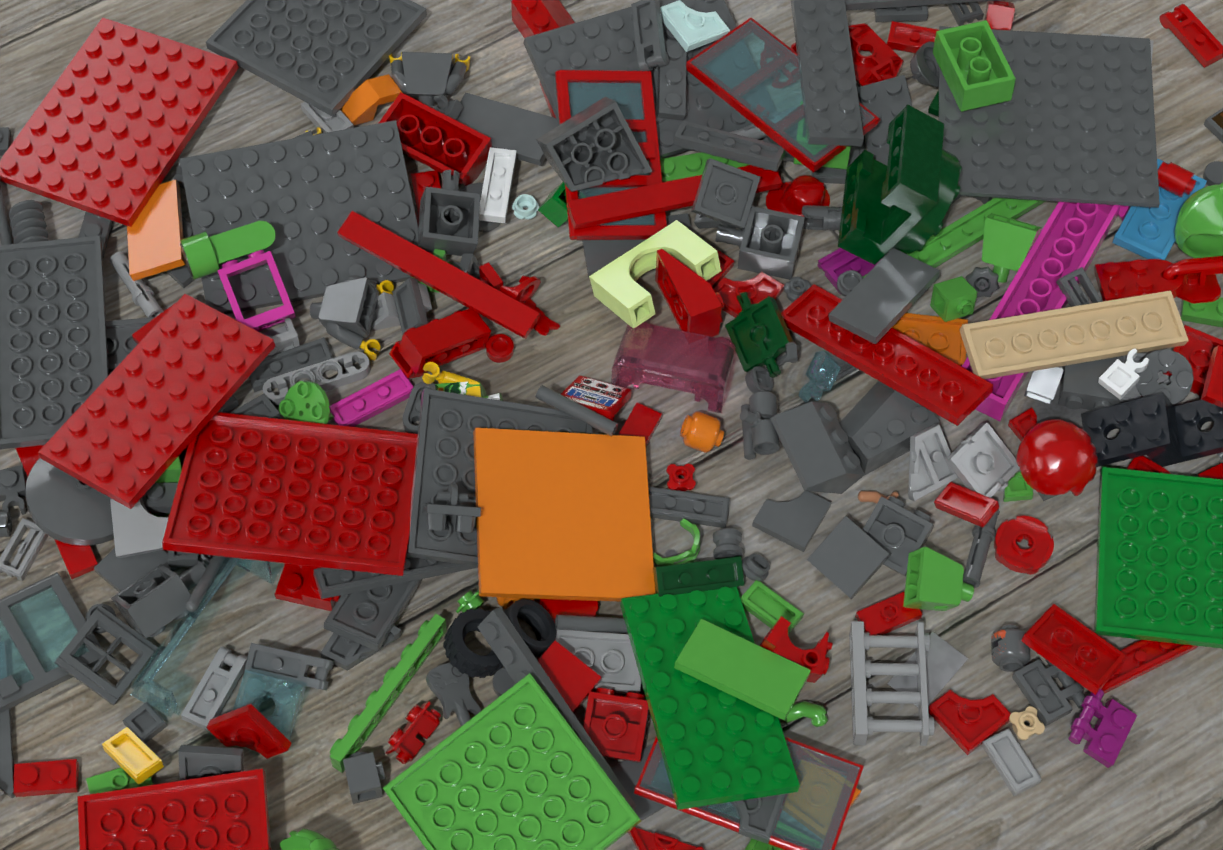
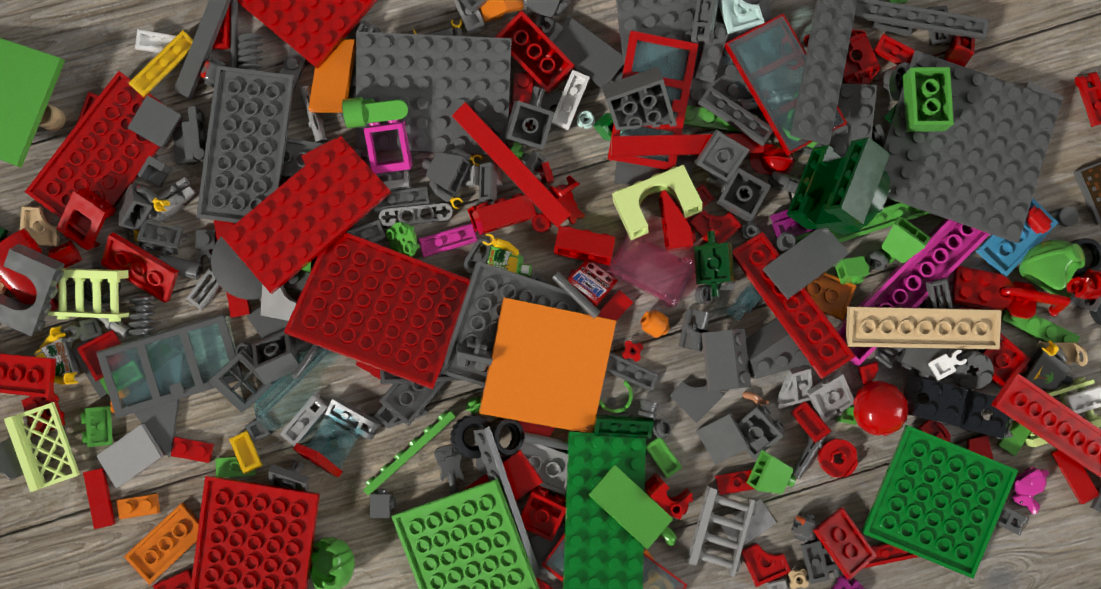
camera: 20 degrees right, 25 degrees up
(419, 722) = (412, 486): red hinge -> none
(569, 356) = (584, 245): none -> red brick

